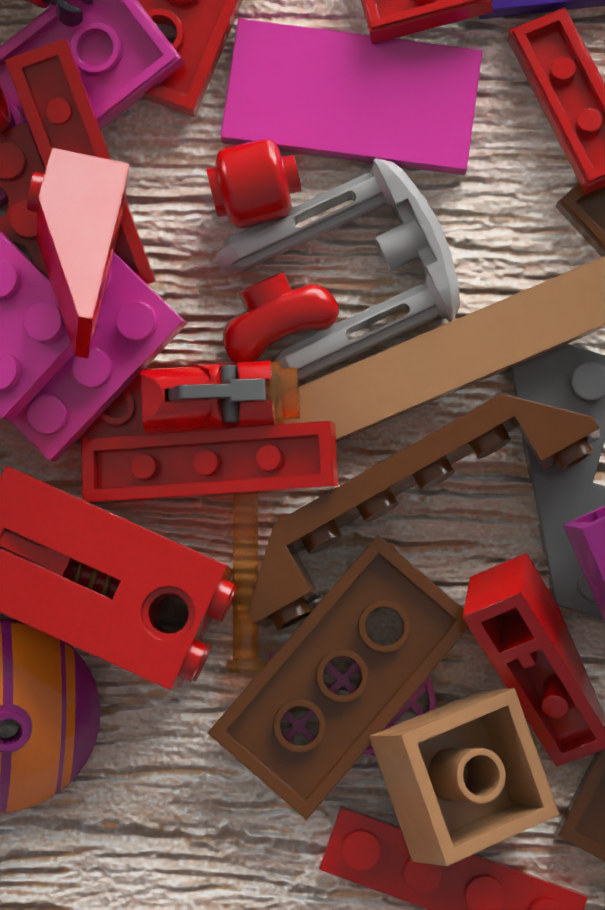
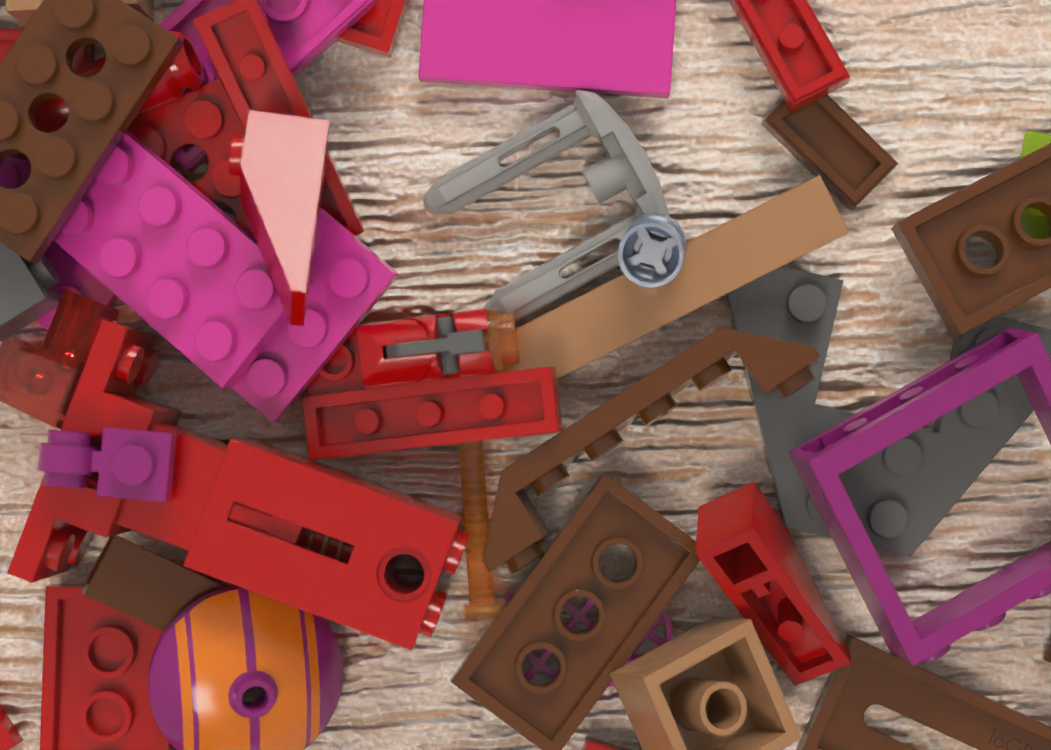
camera: 10 degrees left, 5 degrees up
(253, 183) = (455, 124): red head -> none
(274, 313) = (486, 256): red piece -> none
(429, 317) = (645, 258): none -> sand blue wheel

